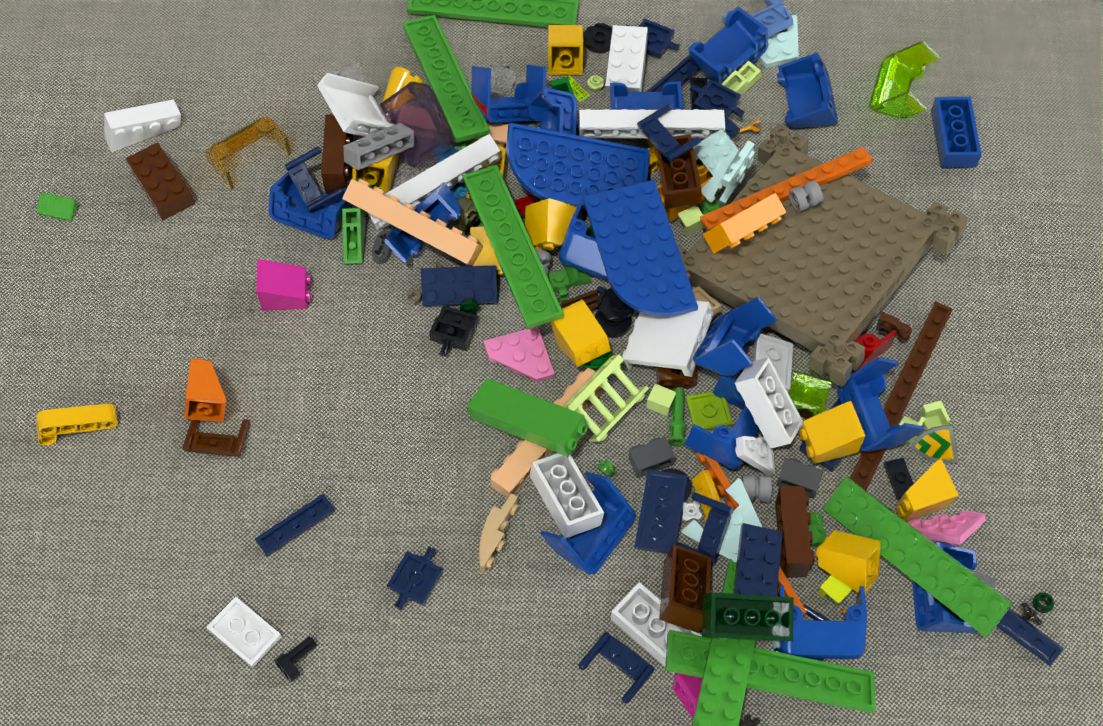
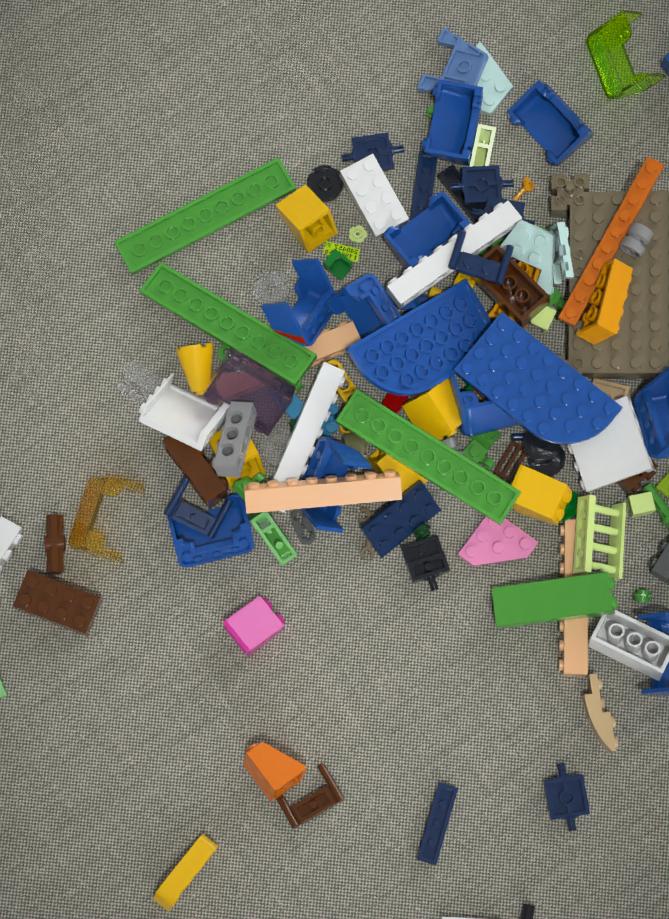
camera: 40 degrees left, 15 degrees up
(195, 143) = (55, 544): none -> reddish brown piece

